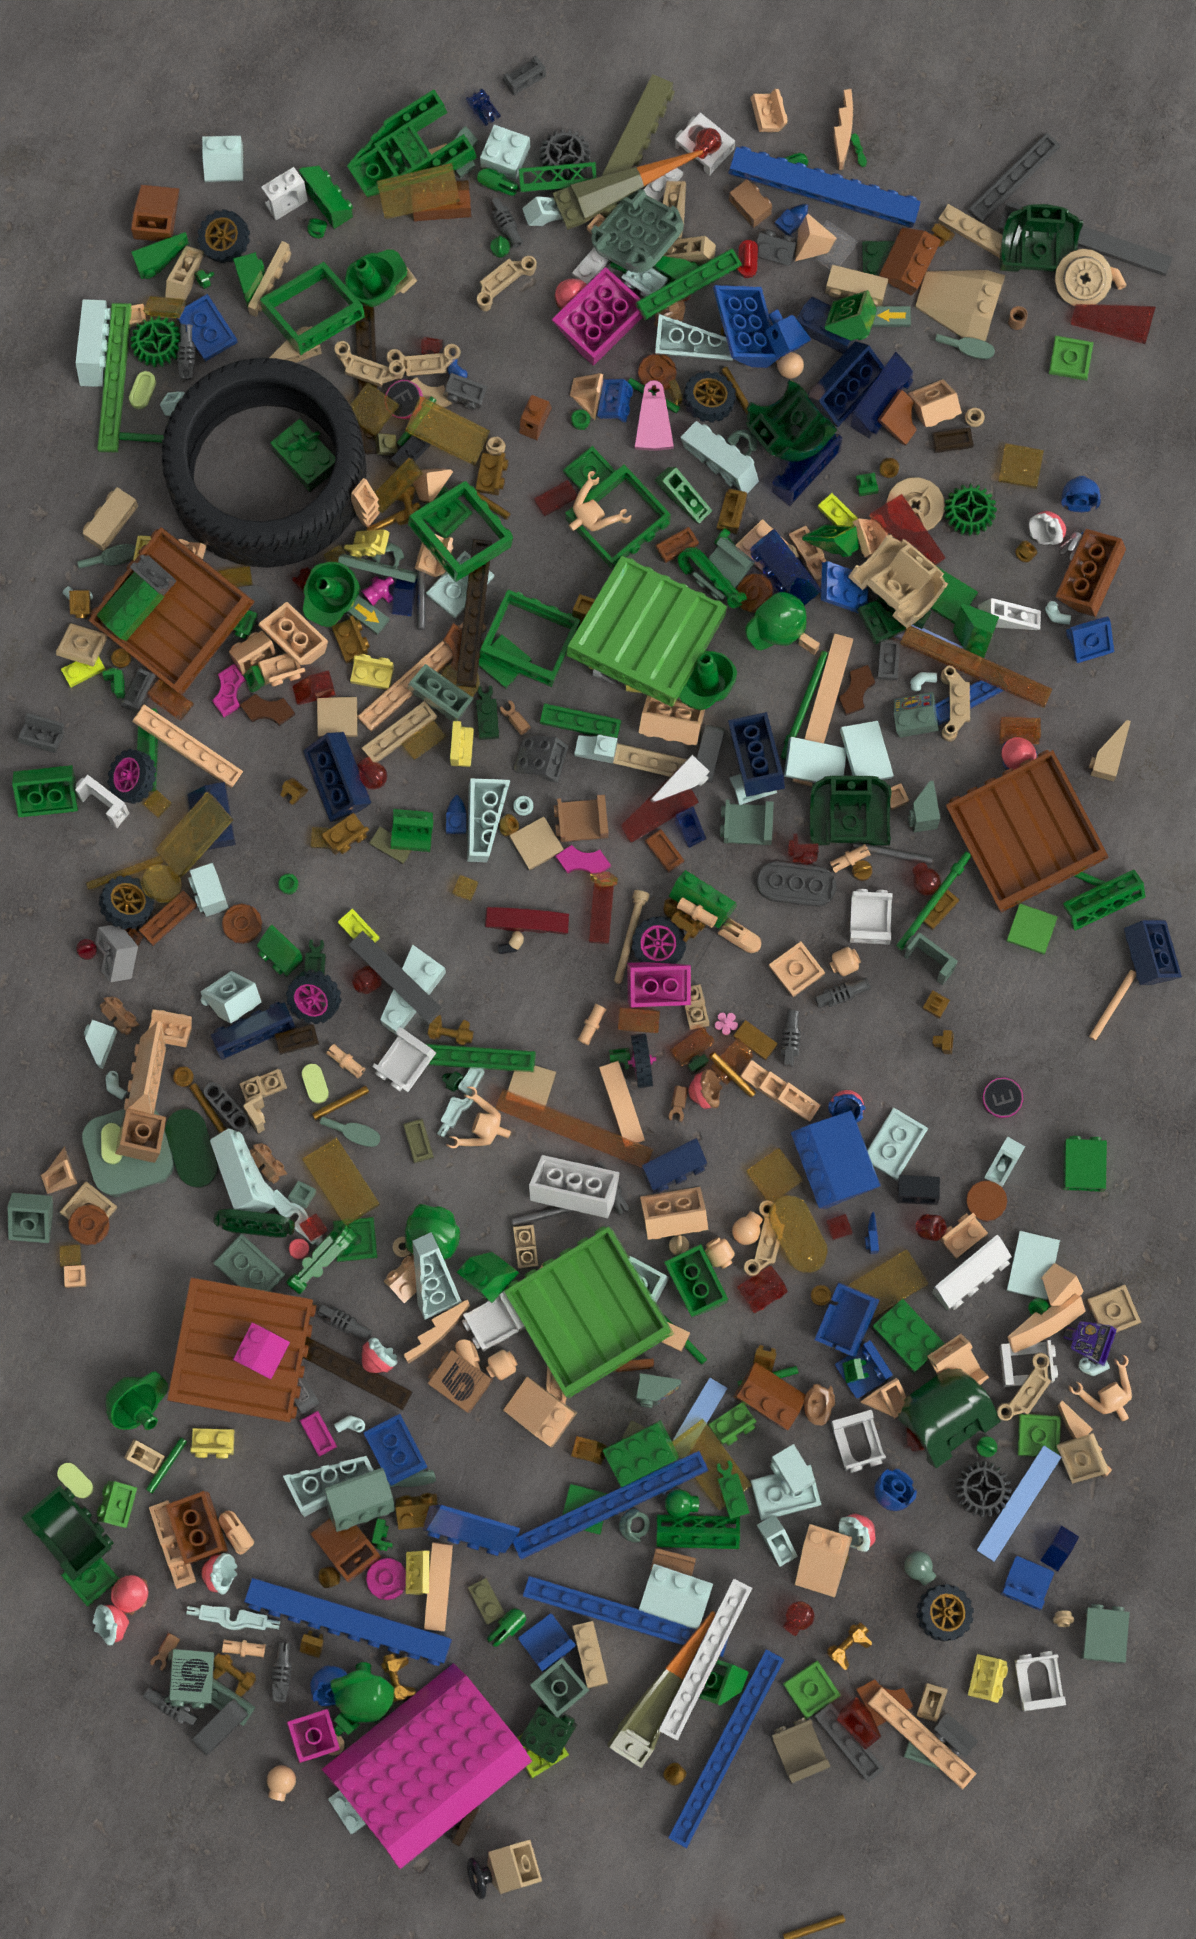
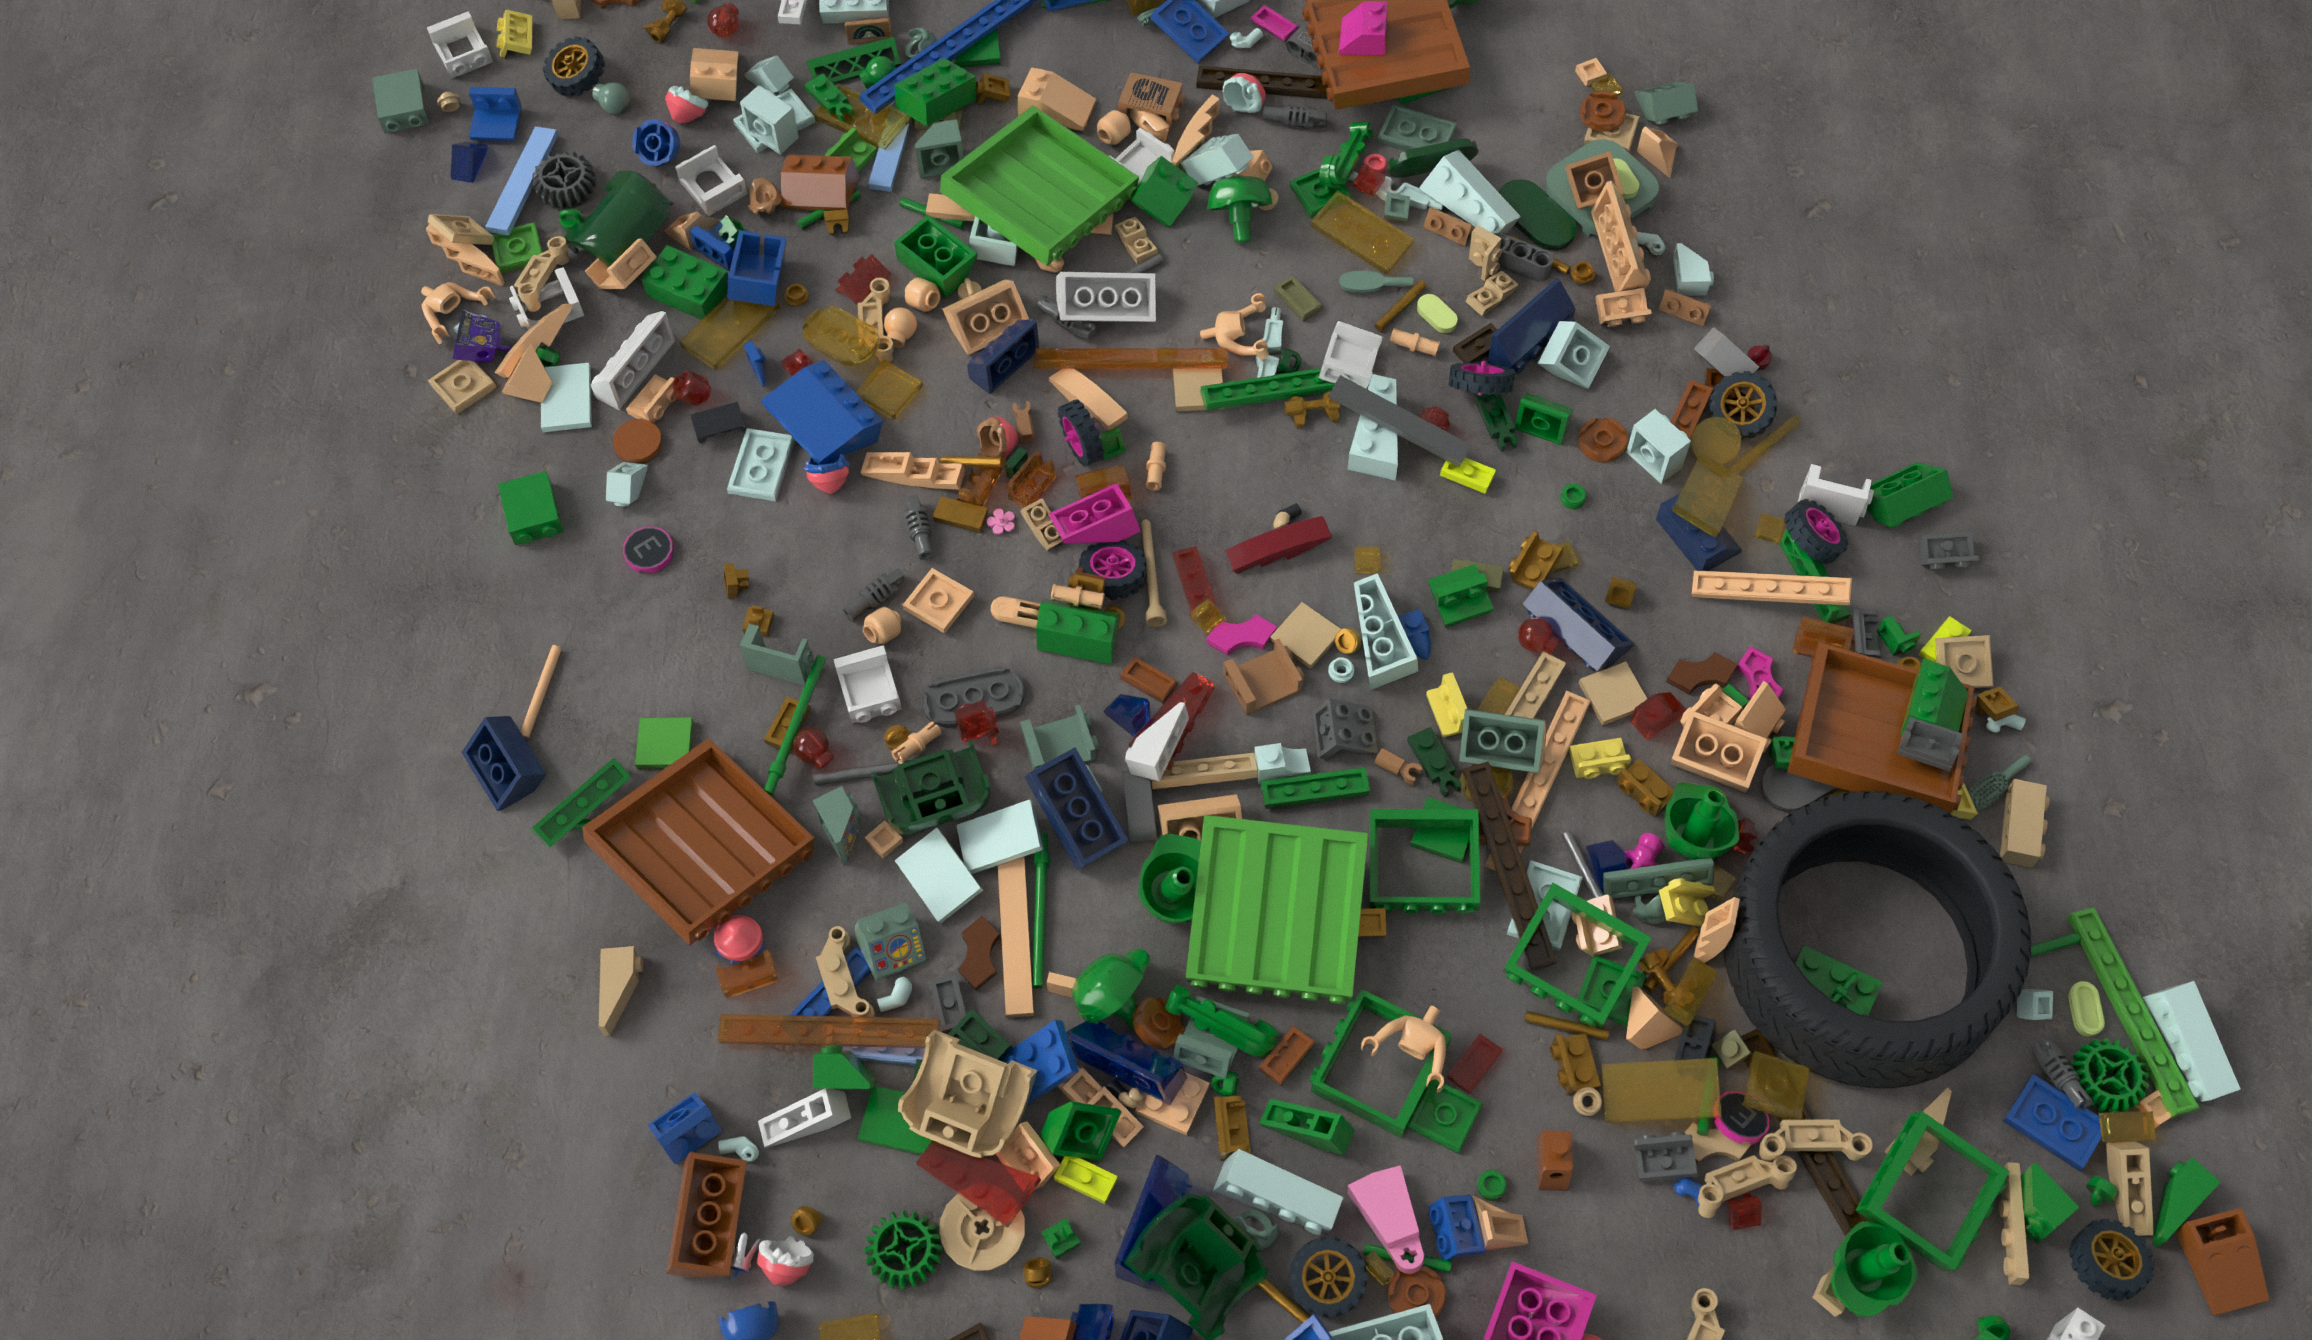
camera: 160 degrees right, 15 degrees down
(369, 615) = (1635, 823): sand green tile -> none

